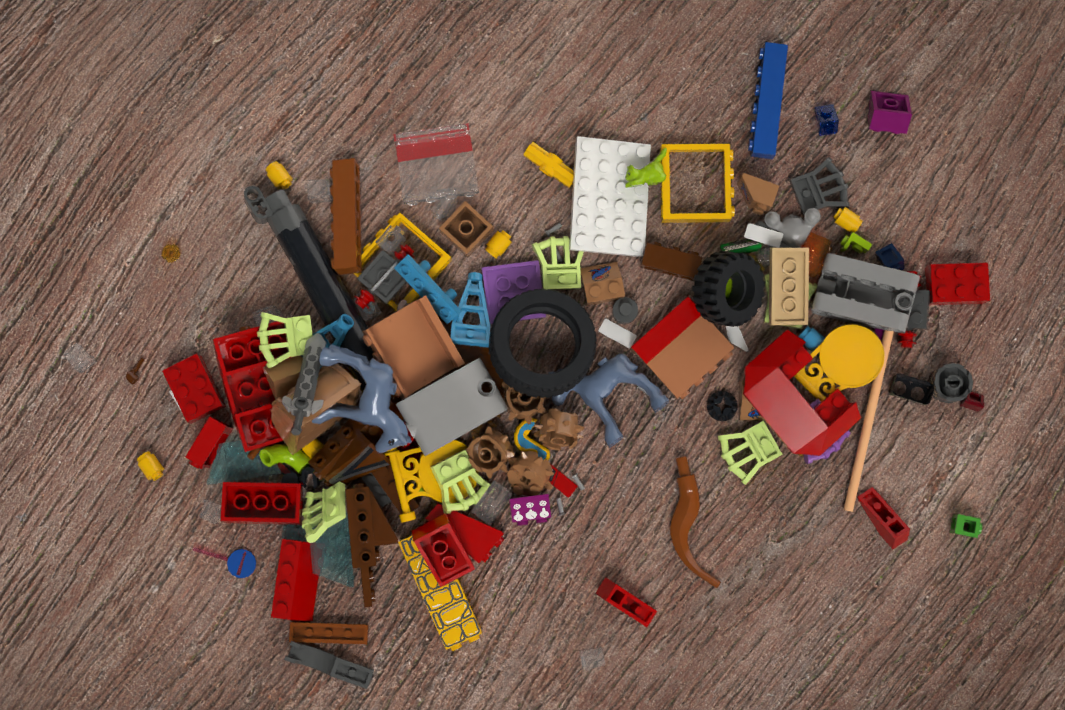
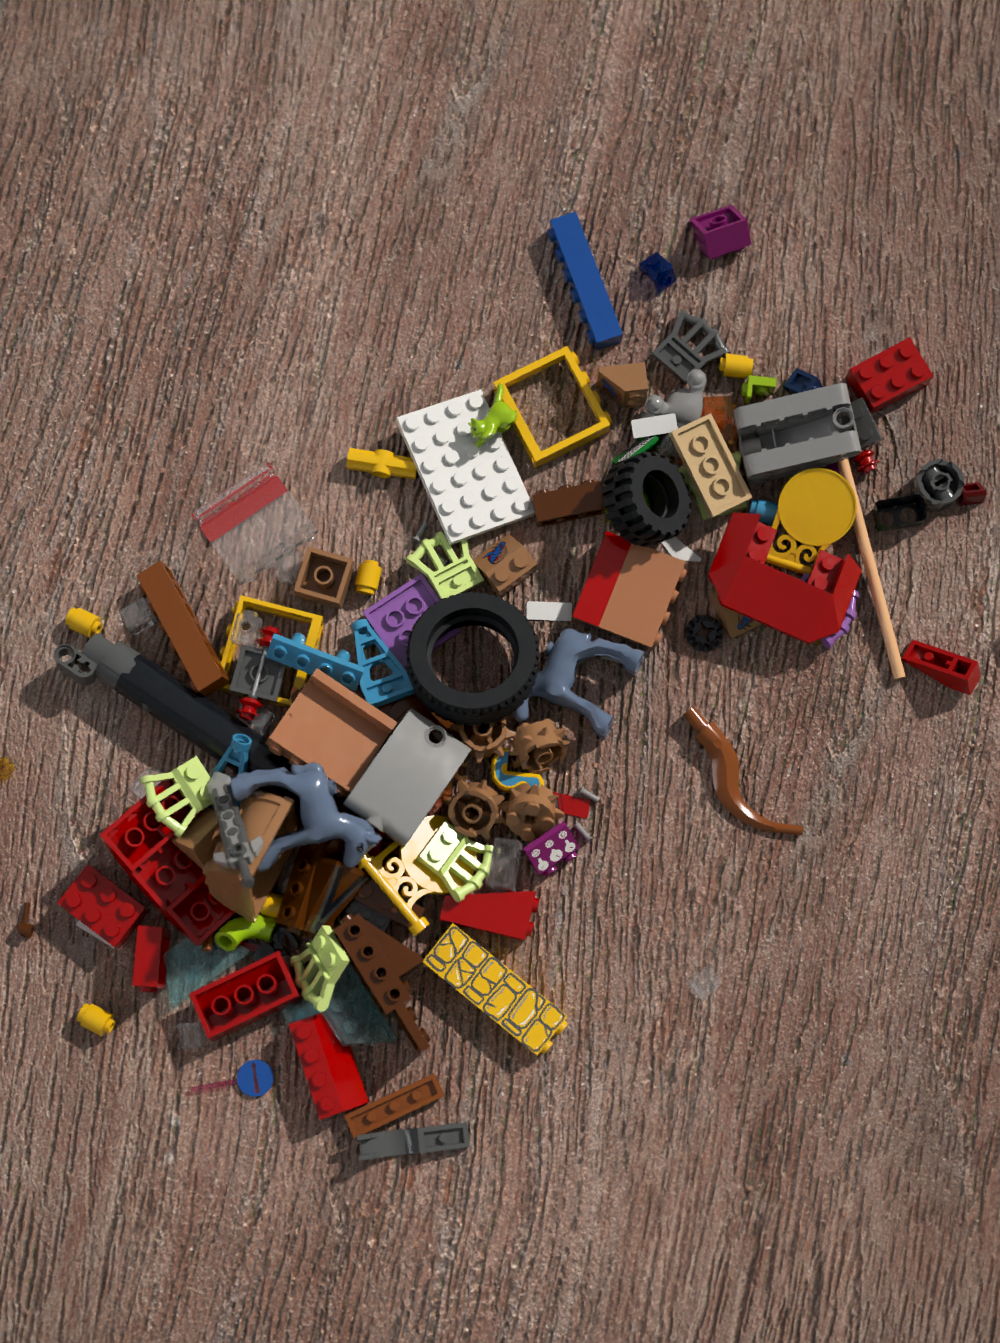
camera: 25 degrees left, 5 degrees down
(442, 550) = (477, 944): red slope -> none
(625, 310) = (544, 581): dark grey piece -> none
(626, 602) = (709, 900): red slope -> none
(759, 442) = (766, 652): yellowish green plate -> none

